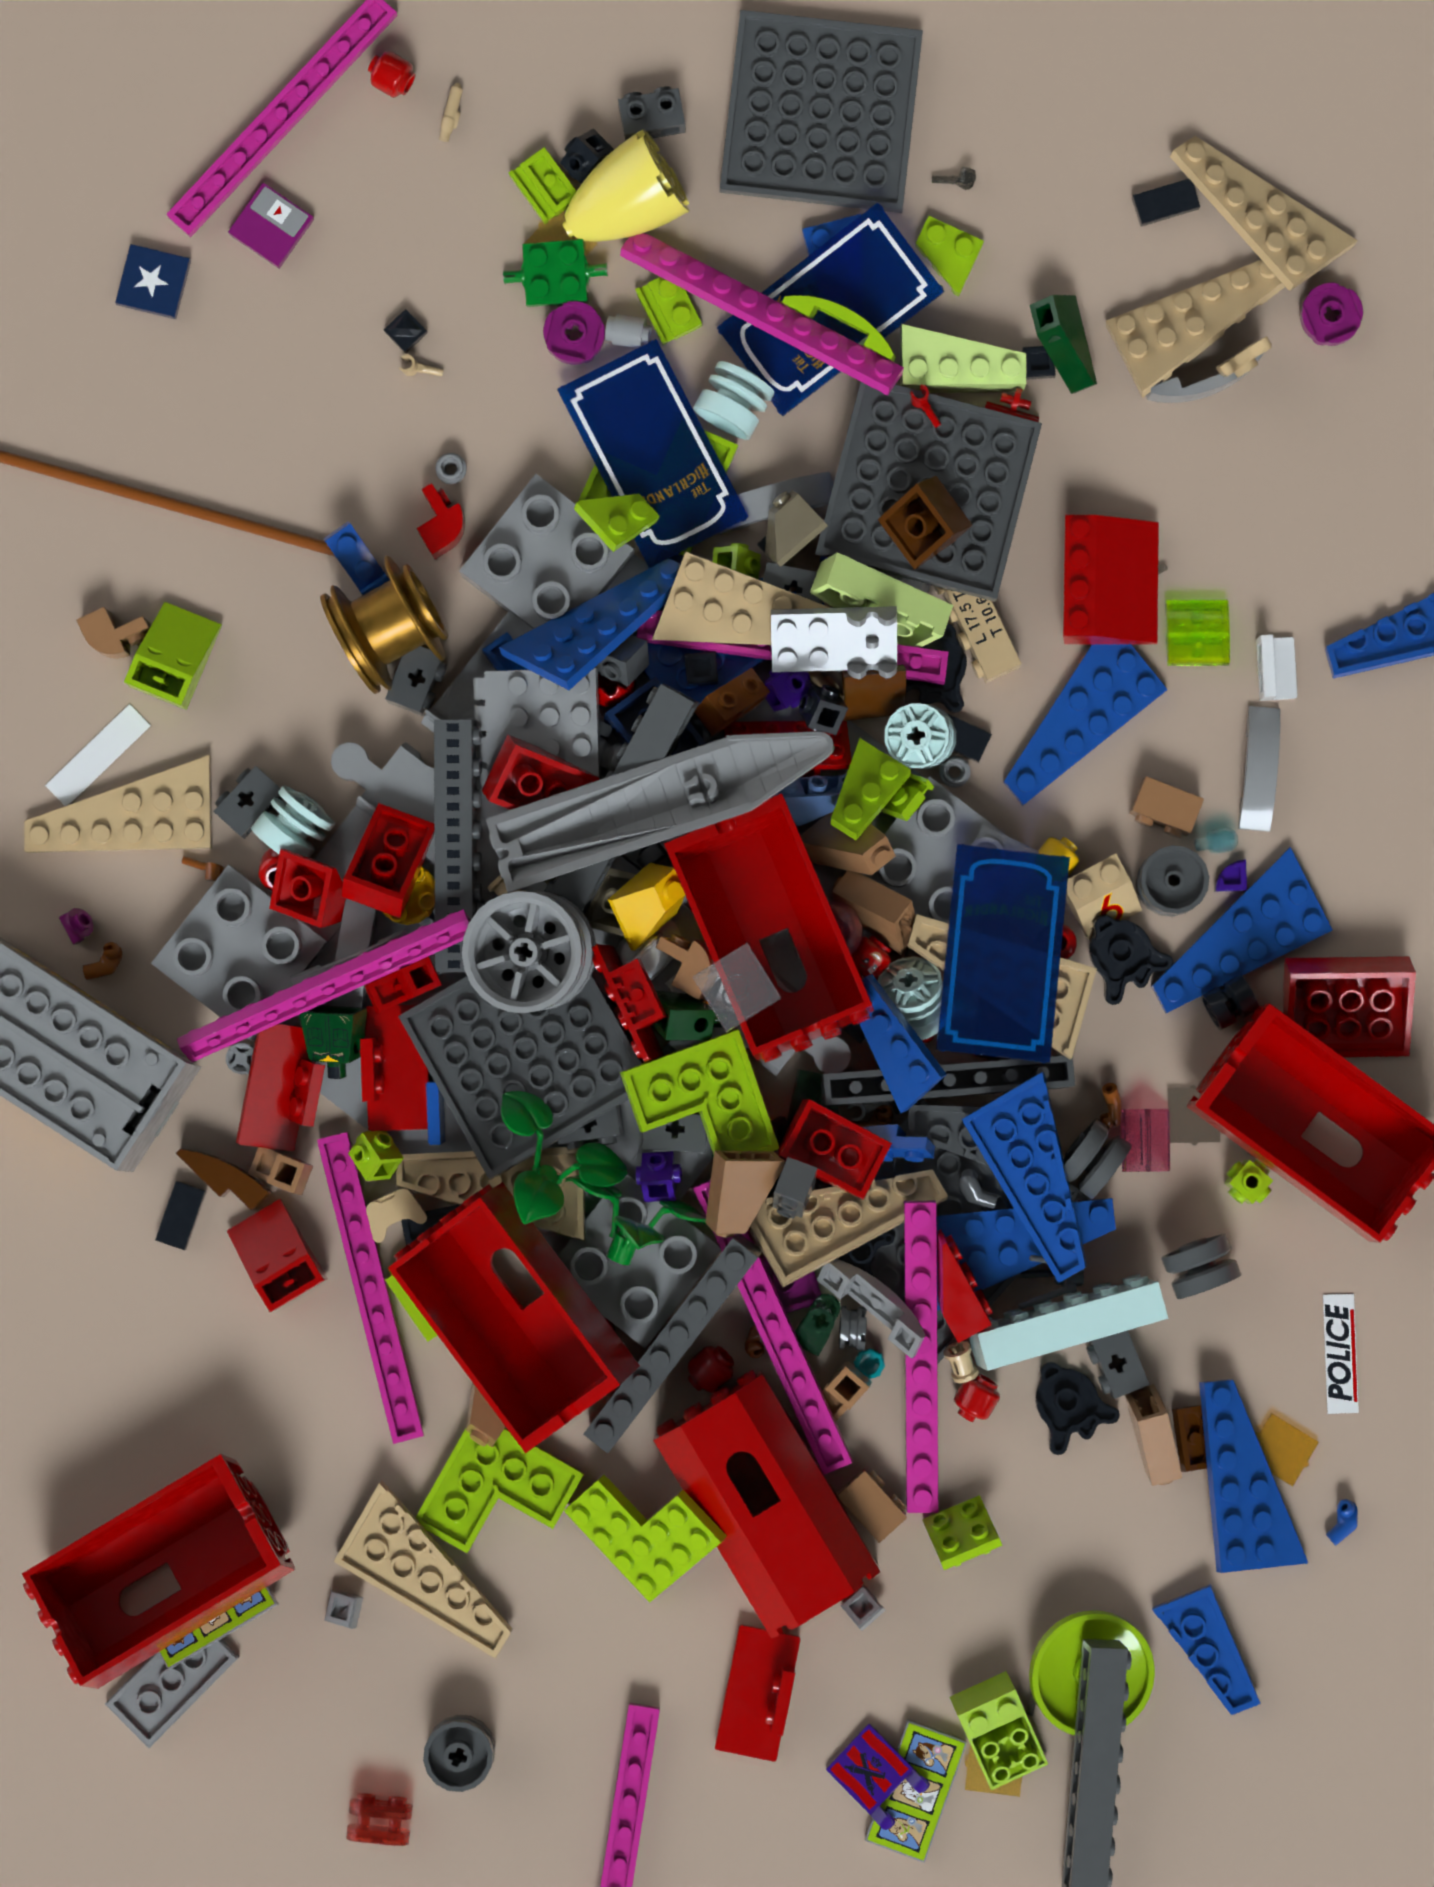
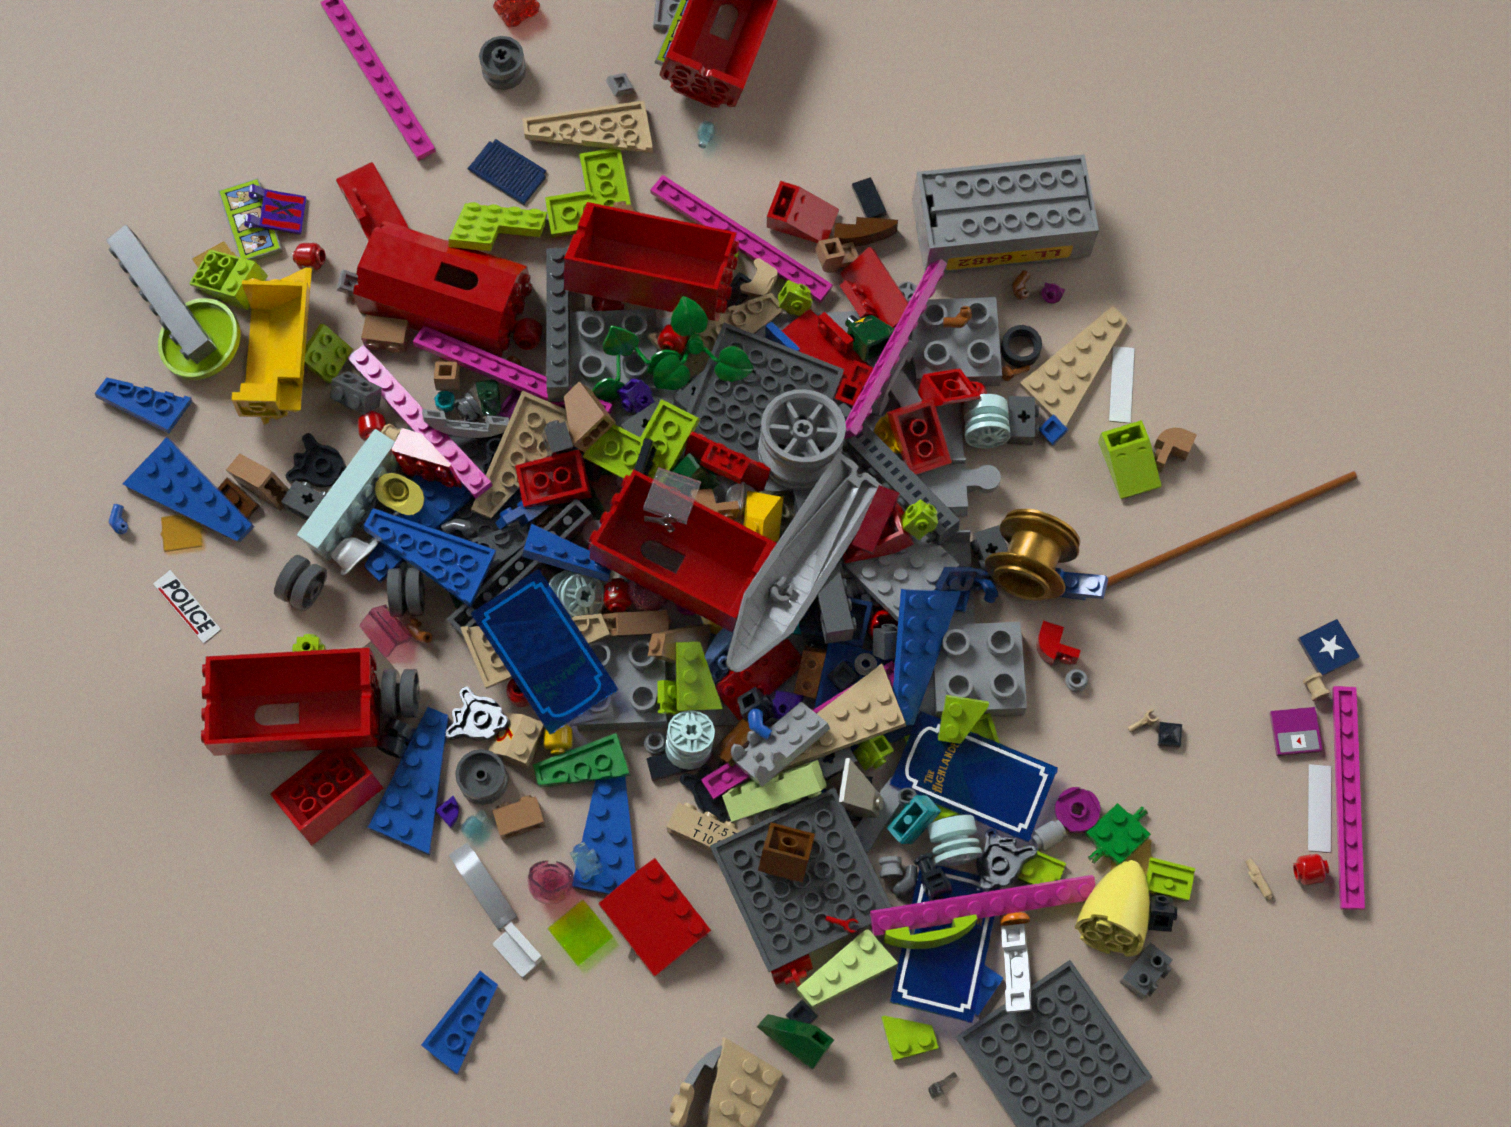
camera: 140 degrees right, 15 degrees down
(147, 883) = (1025, 331): none -> black tyre
(206, 250) = (1316, 686): none -> tan bush
(222, 959) = (960, 320): none -> dark orange arm
(223, 762) = (1053, 429): none -> blue tile
(296, 1458) = (705, 133): none -> clear light blue cylinder
(320, 131) = (1319, 808): none -> white sticker
(454, 645) = (989, 588): none -> blue arm
(481, 750) = (920, 519): none -> lime brick
(484, 661) = (960, 579): none -> dark blue hinge
(530, 787) = (876, 519): none -> dark red tile
(564, 1606) = (508, 171): none -> dark blue window
(573, 1207) = (671, 340): none -> red head
(666, 669) = (858, 666): none -> light grey plate
(700, 344) = (1001, 860): none -> tile
(723, 1072) = (646, 456): none -> black tile
(739, 488) = (908, 794): none -> dark grey hinge
(740, 274) = (1014, 918): none -> orange piece
(757, 456) = (914, 819): none -> teal brick
(772, 963) = (665, 521): none -> clear smoke hand
(783, 222) = (1017, 968): none -> white slope
(789, 383) = (932, 878): none -> black connector
(816, 403) = (907, 883): none -> dark grey arm
(820, 433) = (890, 867): none -> light grey wheel
(843, 681) = (755, 721): none -> blue arm
(884, 1680) = (309, 256): none -> red head
(965, 1452) = (355, 392): none -> dark grey brick
(1013, 1583) = (275, 346): none -> yellow panel
(1015, 1275) = (399, 493): none -> light yellow piece
(1044, 802) = (586, 763): none -> green wing
(1116, 1254) = (351, 551): none -> white piece
(1136, 695) = (585, 861): none -> clear light blue brick
(1189, 706) = (550, 882): none -> clear pink cylinder
(1193, 1048) = (400, 693): none -> dark grey wheel

